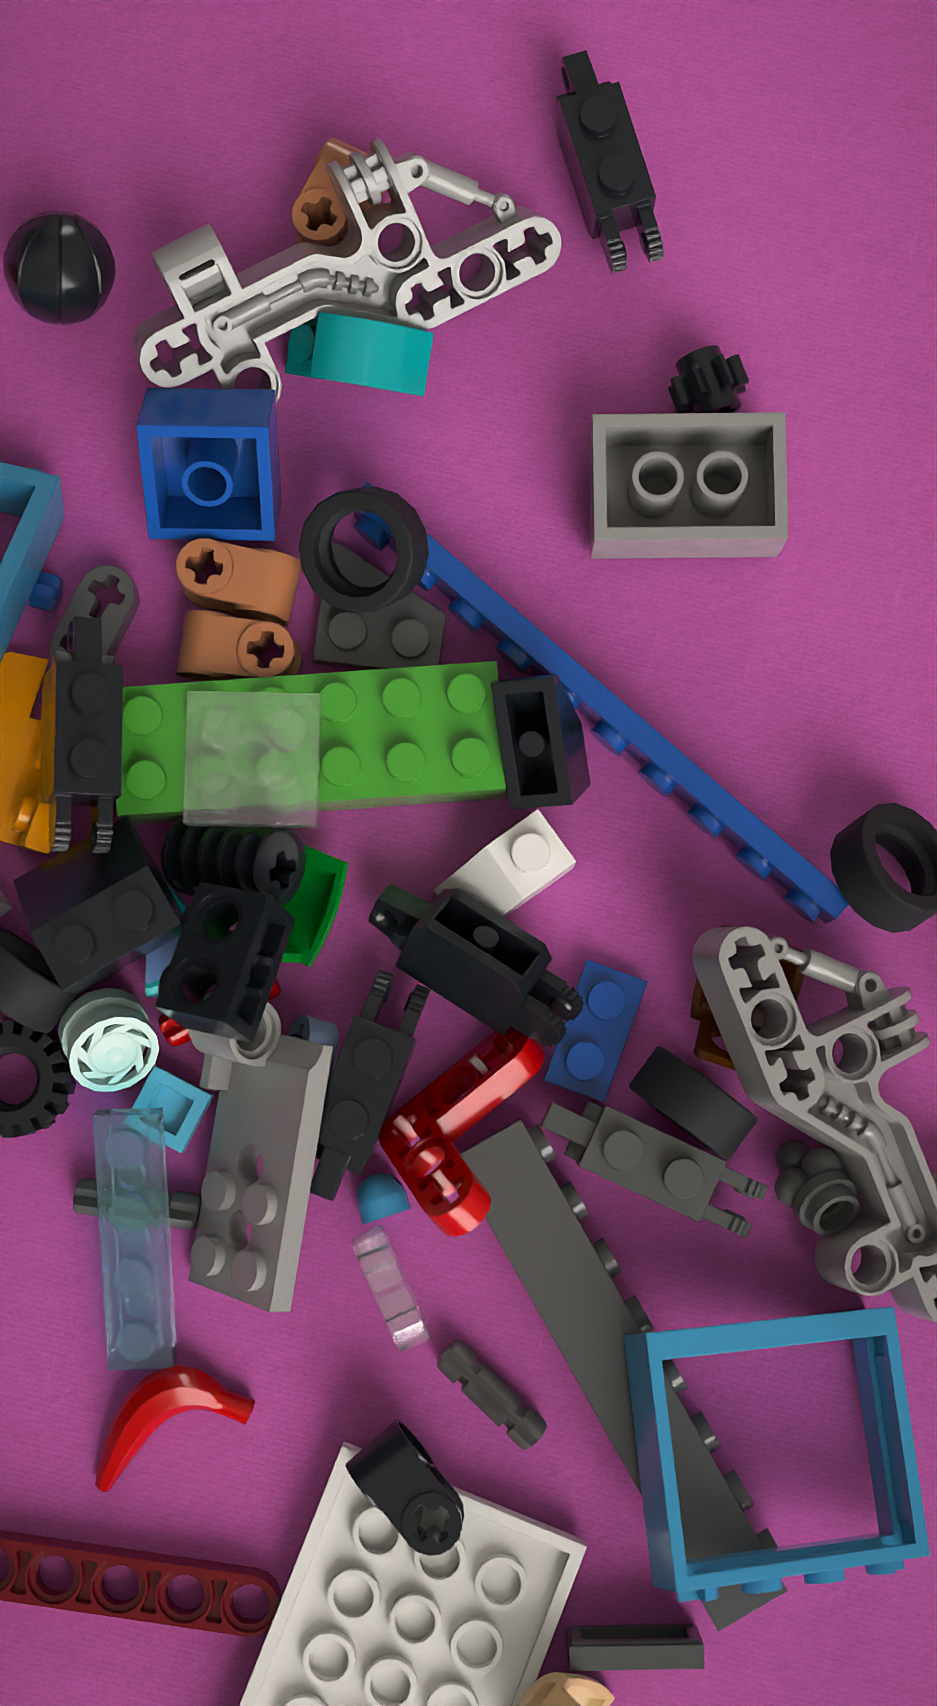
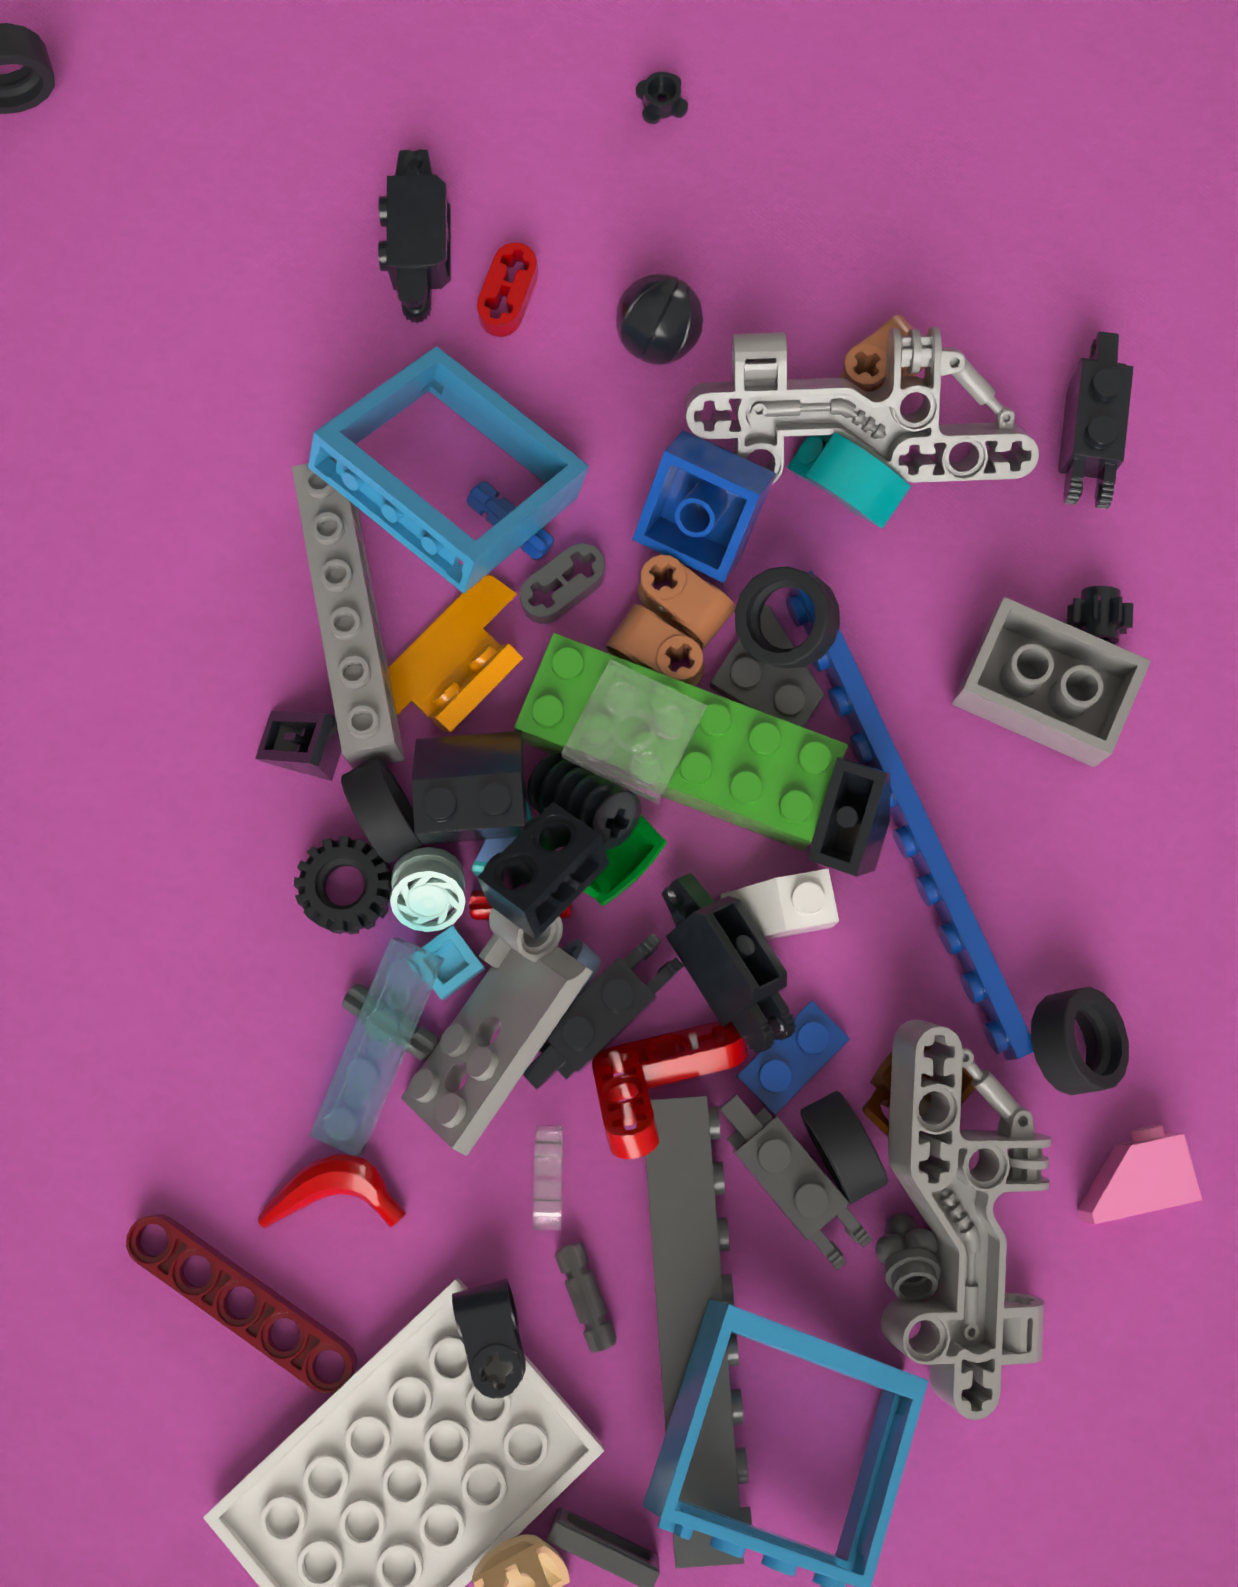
camera: 25 degrees right, 5 degrees down
(81, 736) = (517, 656): black hinge -> none
(380, 1197) = (572, 1105): dark azure hinge -> none

